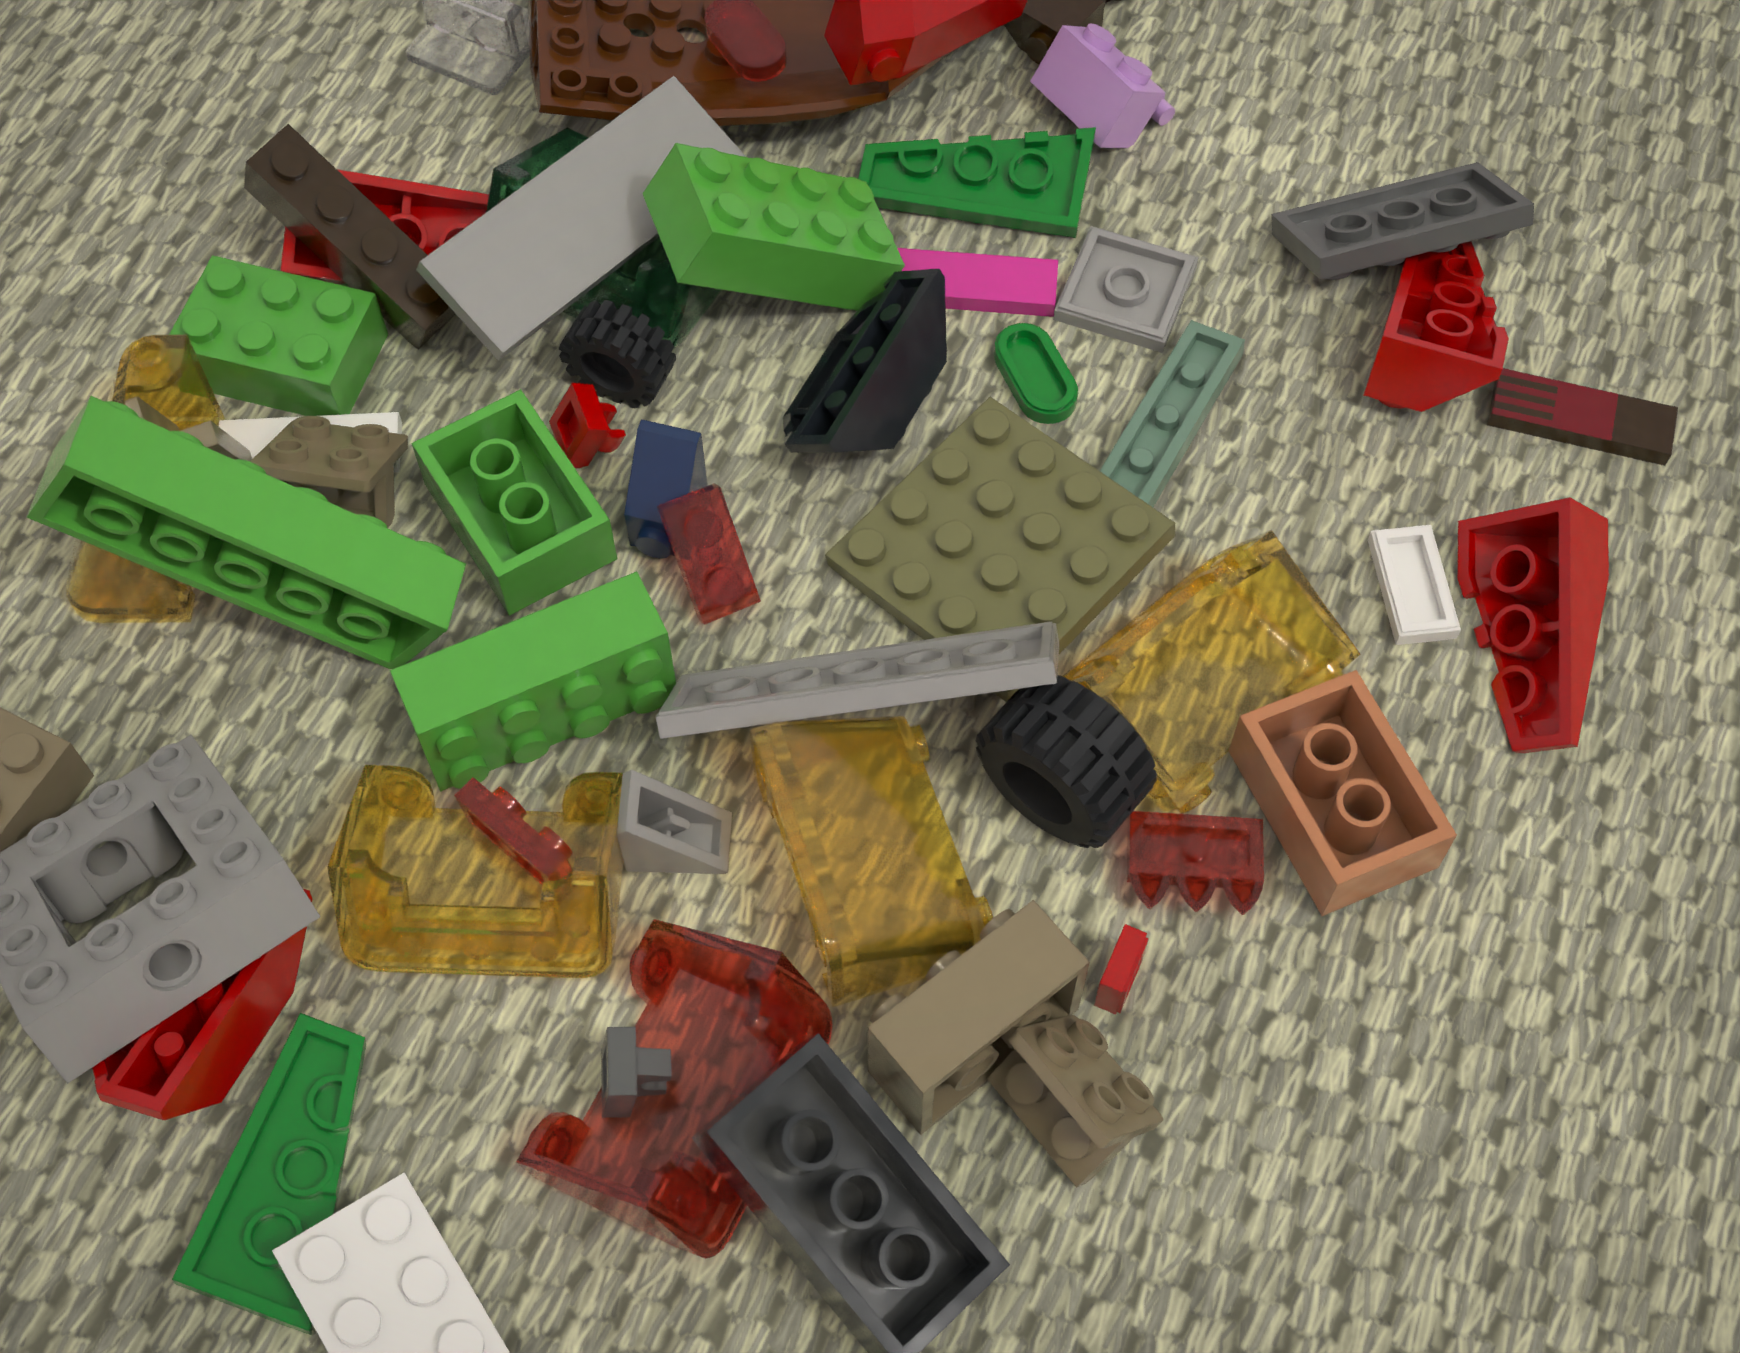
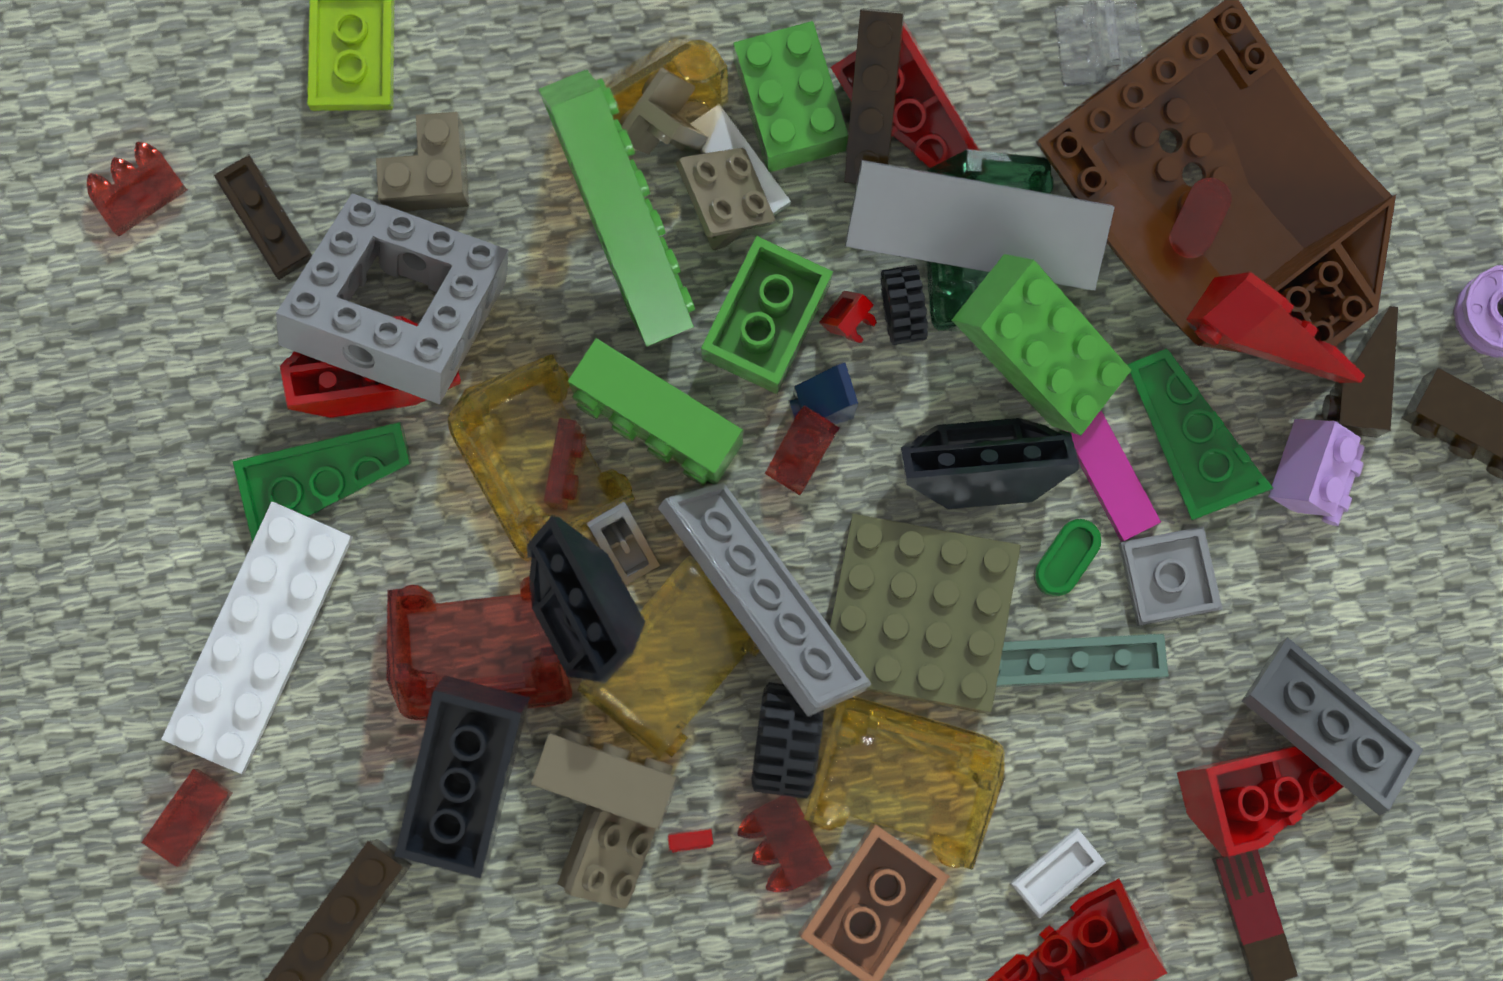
camera: 55 degrees right, 20 degrees up
(630, 1071) = (470, 612): dark grey tile -> none
(724, 880) = (581, 603): none -> black wedge

